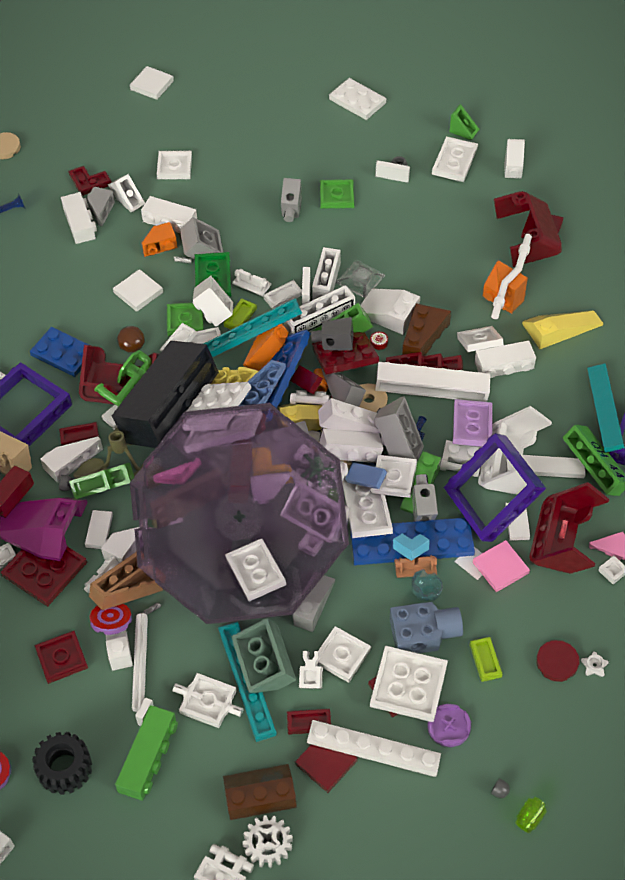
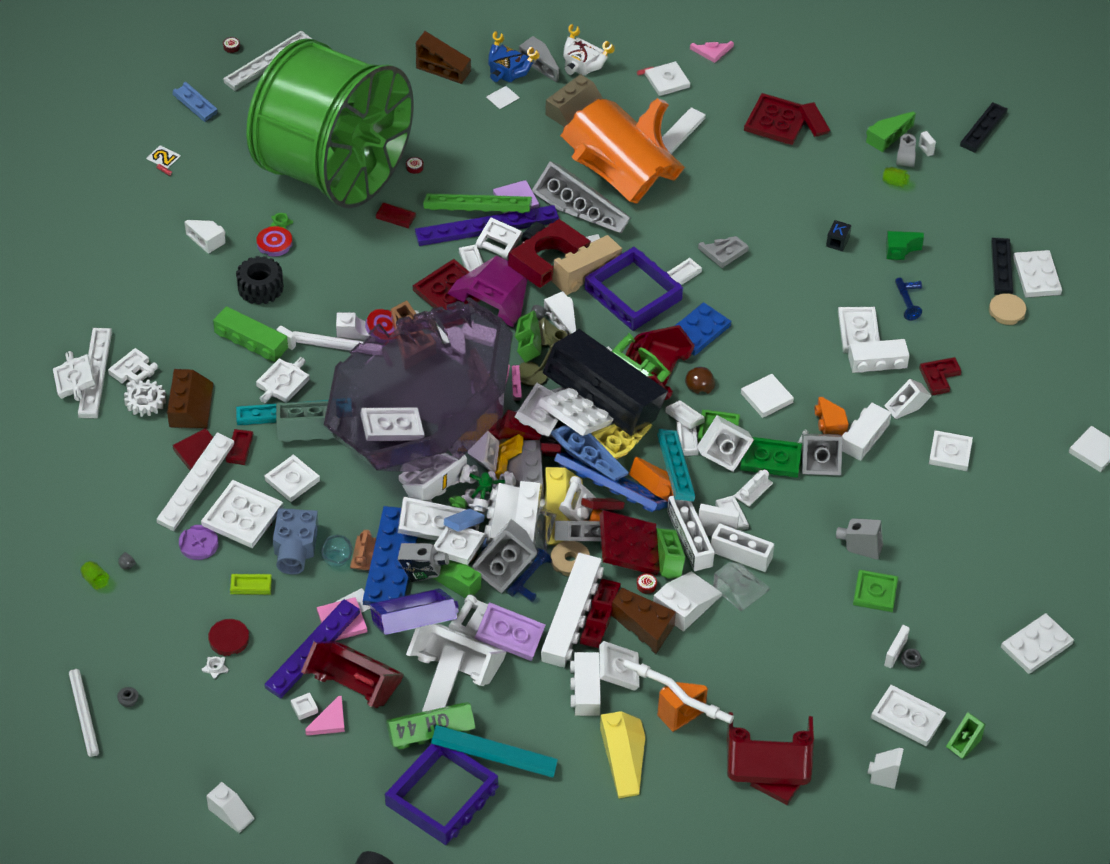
camera: 100 degrees right, 5 degrees down
(44, 238) = (857, 325): none -> white tile
(61, 656) = (361, 294): dark red tile -> none
(78, 433) = (594, 327): dark red tile -> none
(100, 203) = (892, 374): light grey slope -> none
(241, 314) = (711, 473): lime tile -> none
(311, 608) = (351, 467): light grey slope -> none
(311, 673) = (279, 451): white plate -> none
(335, 334) = (647, 532): dark grey torso -> none
(411, 547) = (375, 541): medium azure piece -> none
(519, 527) = (387, 646): white tile -> none
(547, 579) = (328, 630): none -> dark purple plate

